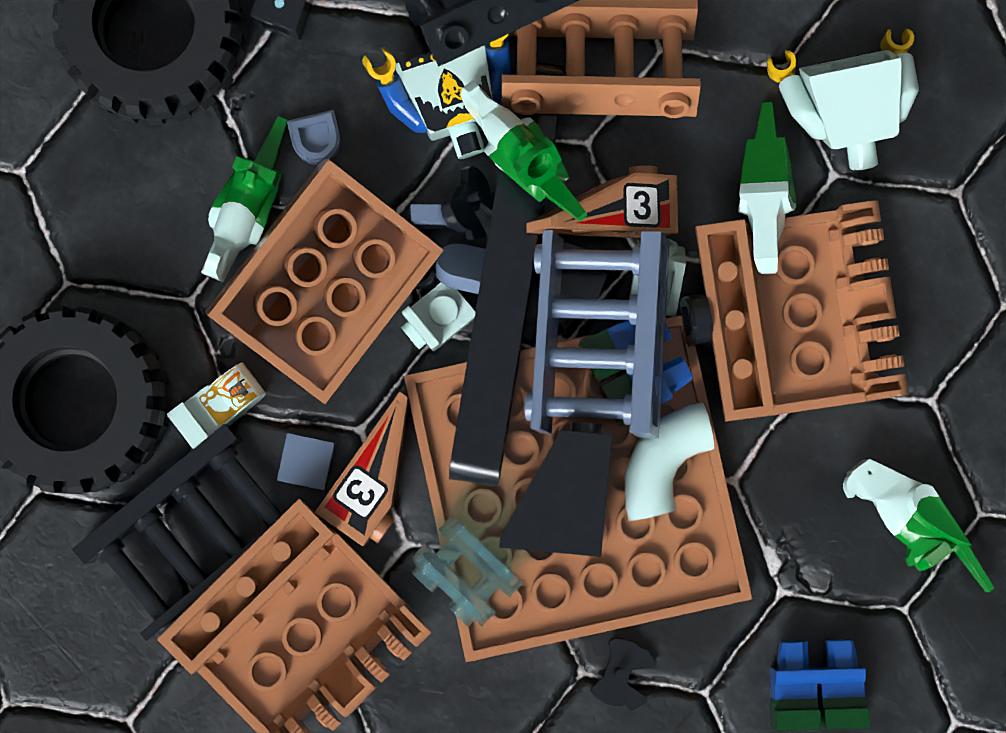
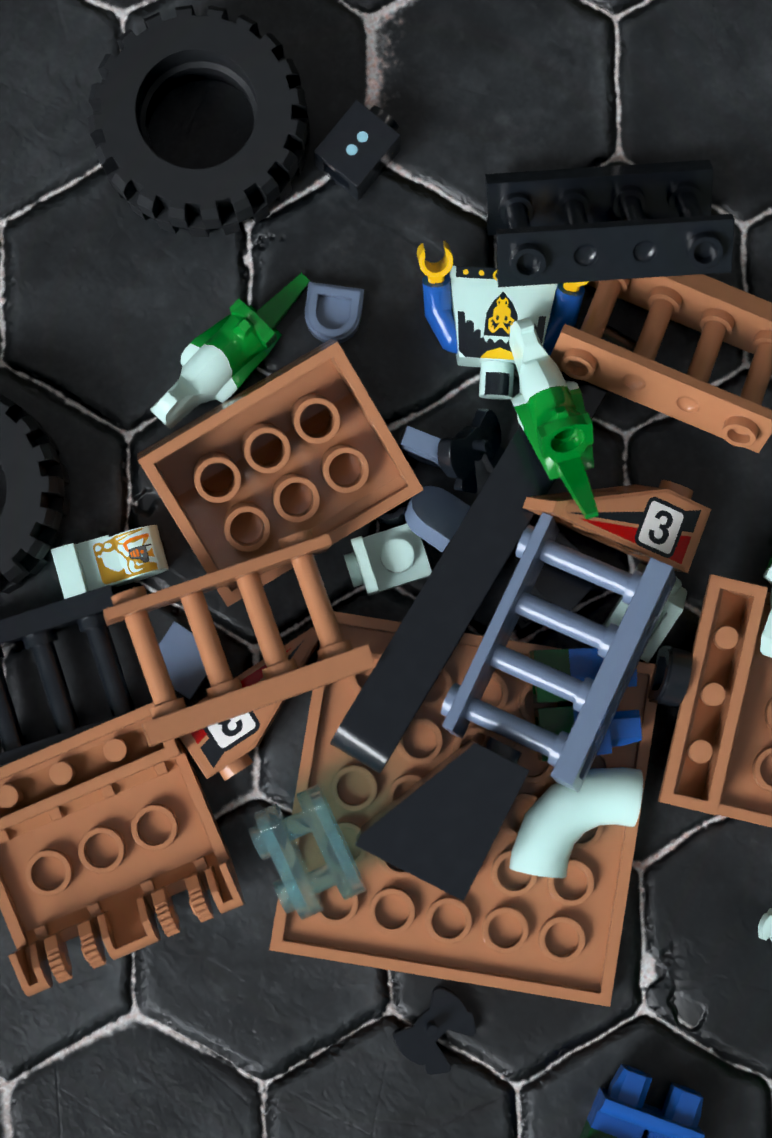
camera: 20 degrees right, 0 degrees up
(351, 472) = (226, 694): none -> nougat fence

